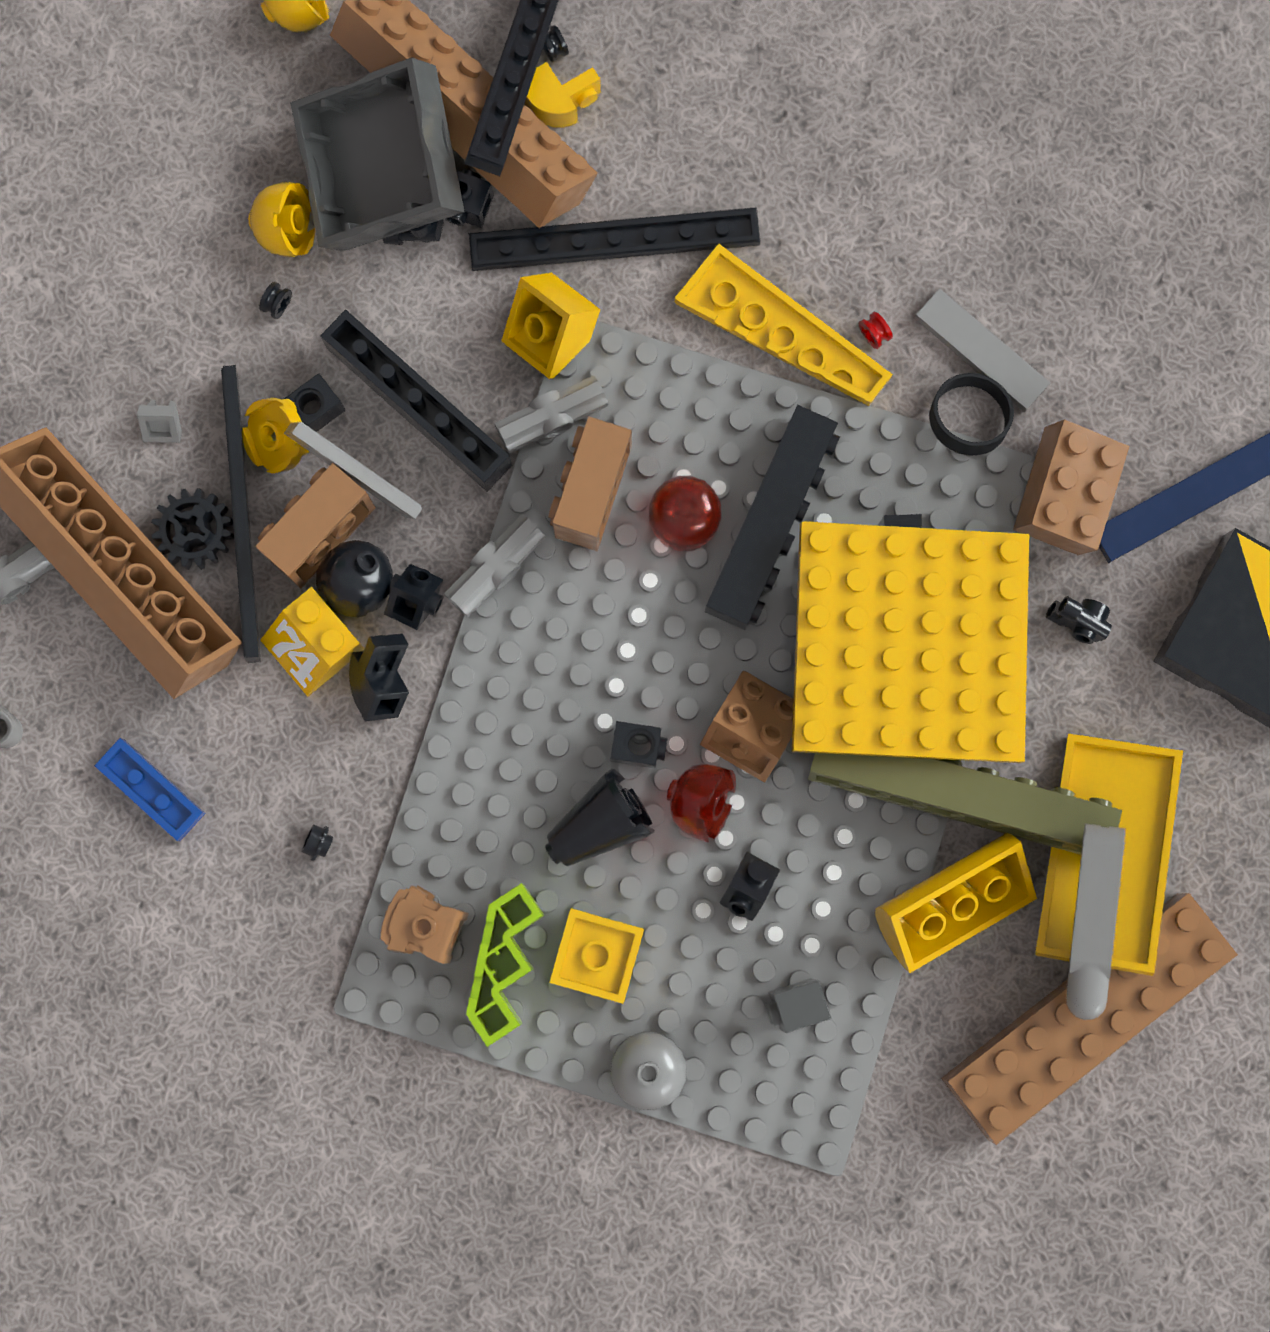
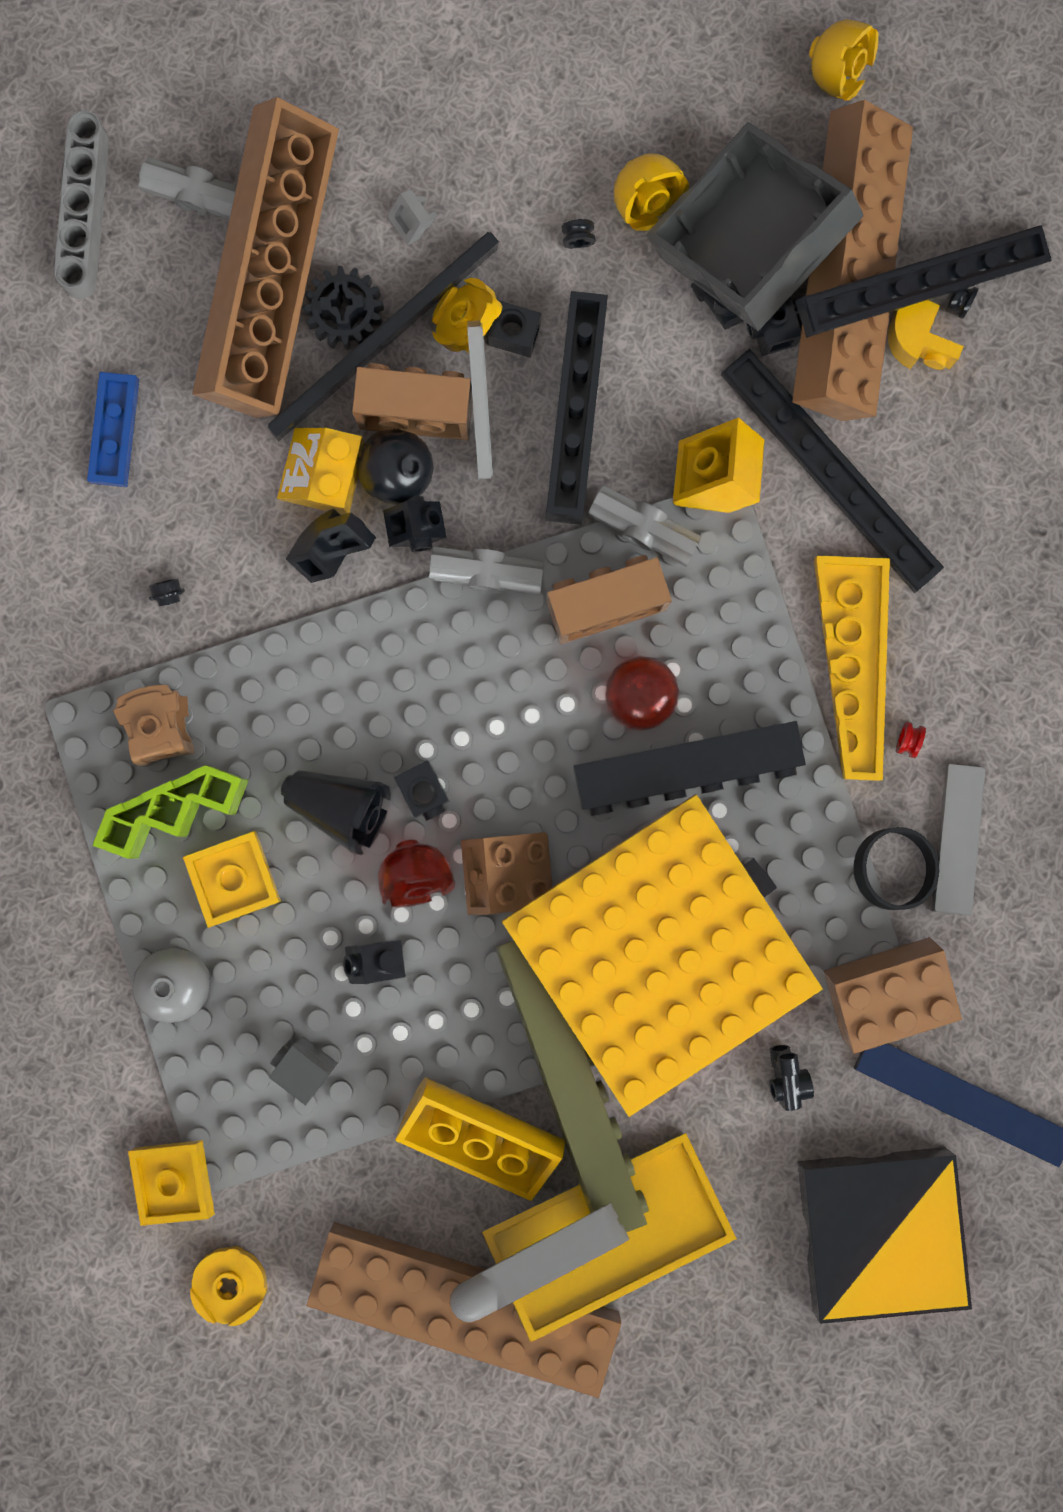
camera: 55 degrees right, 5 degrees up
(813, 1190) = (171, 1183): none -> yellow plate
(950, 1220) = (228, 1308): none -> yellow plate

